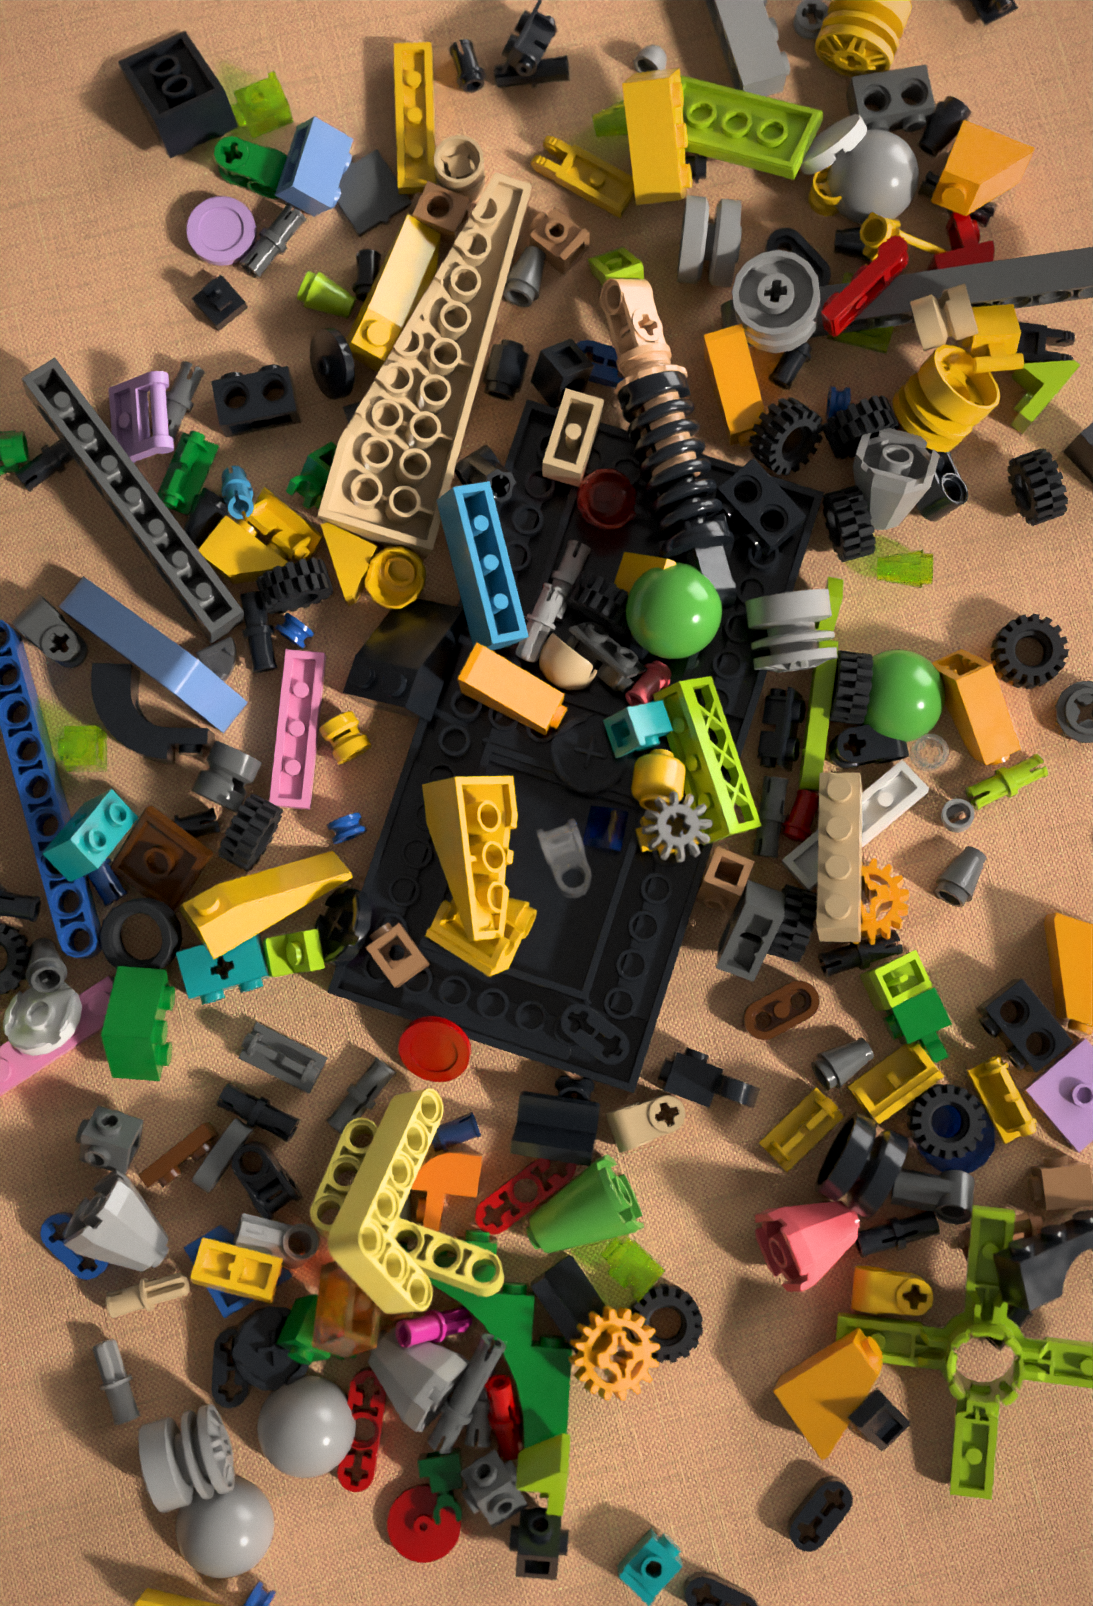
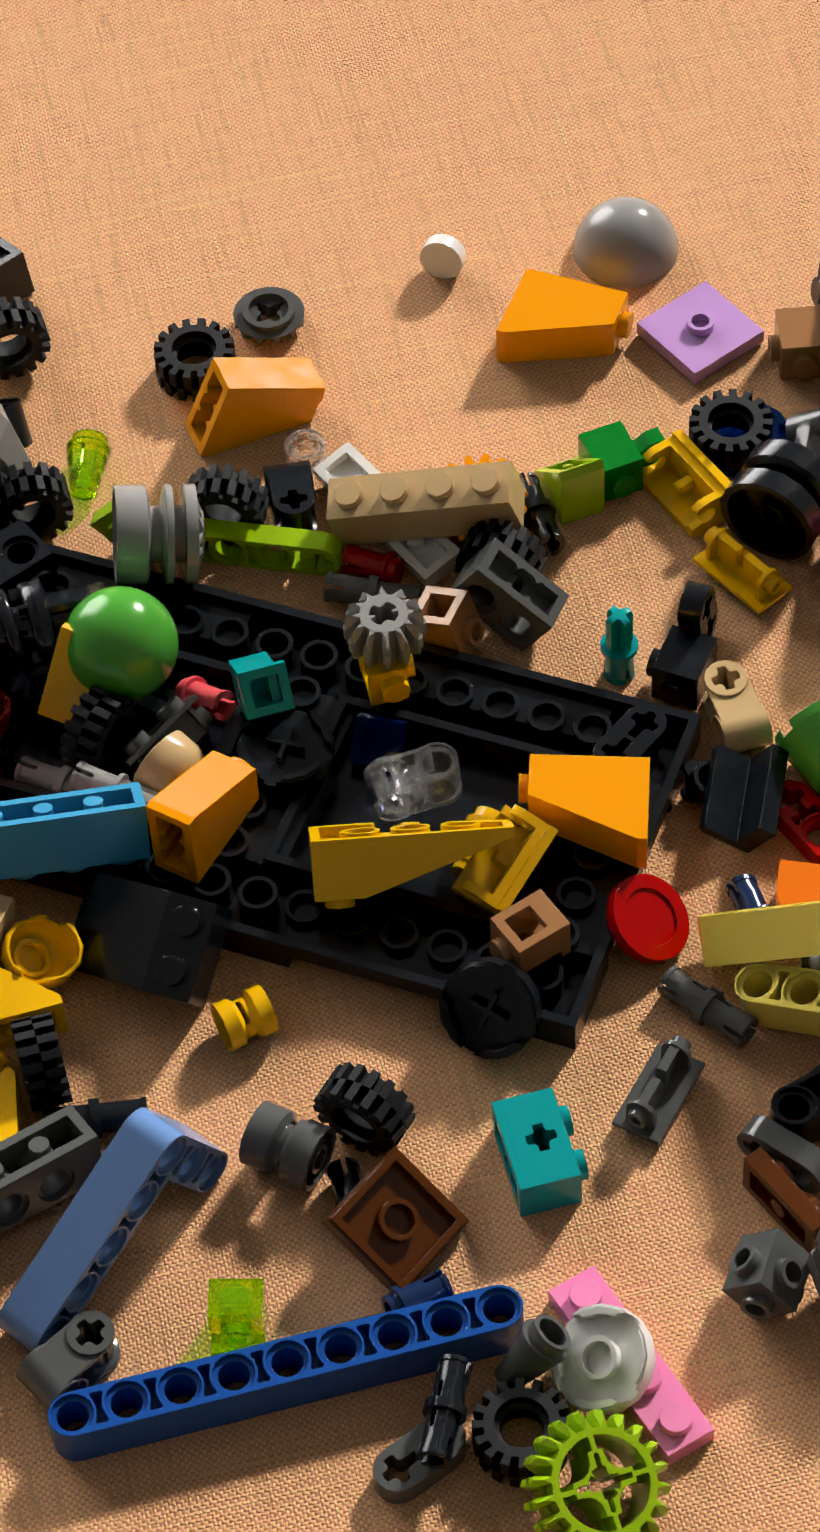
camera: 85 degrees left, 30 degrees down
(90, 835) = (359, 1280): teal brick -> none
(118, 706) = (176, 1277): black arch -> none
(135, 1024) = (616, 1226): green brick -> none
(165, 918) = (511, 1207): black tyre -> none
(252, 903) = (457, 1109): yellow wedge -> none
(258, 1112) = (729, 1116): black pin -> none
(293, 953) = (521, 1058): lime bracket -> none
(294, 630) = (98, 1075): blue bush -> none
(297, 729) = (225, 1072): bright pink plate -> none
(346, 828) = (363, 1017): blue bush -> none
(528, 1005) = (592, 801): none -> light orange slope
(656, 777) = (324, 672): yellow head -> none
(702, 1024) = (619, 646): none -> teal axle
(704, 759) = (290, 634): lime fence -> none
(780, 1011) = (607, 588): reddish brown plate -> none
(786, 714) = (285, 580): black hinge -> none
(840, 1063) = (665, 533): dark grey cone -> none
(904, 695) = (242, 444): bright green piece -> none
(954, 809) = (376, 414): light grey hinge -> none
(960, 879) = (454, 423): dark grey cone -> none
(1002, 1099) = (685, 389): yellow hinge -> none
(1006, 782) = (344, 384): lime pin -> none
(1030, 1018) = (622, 371): black brick -> none

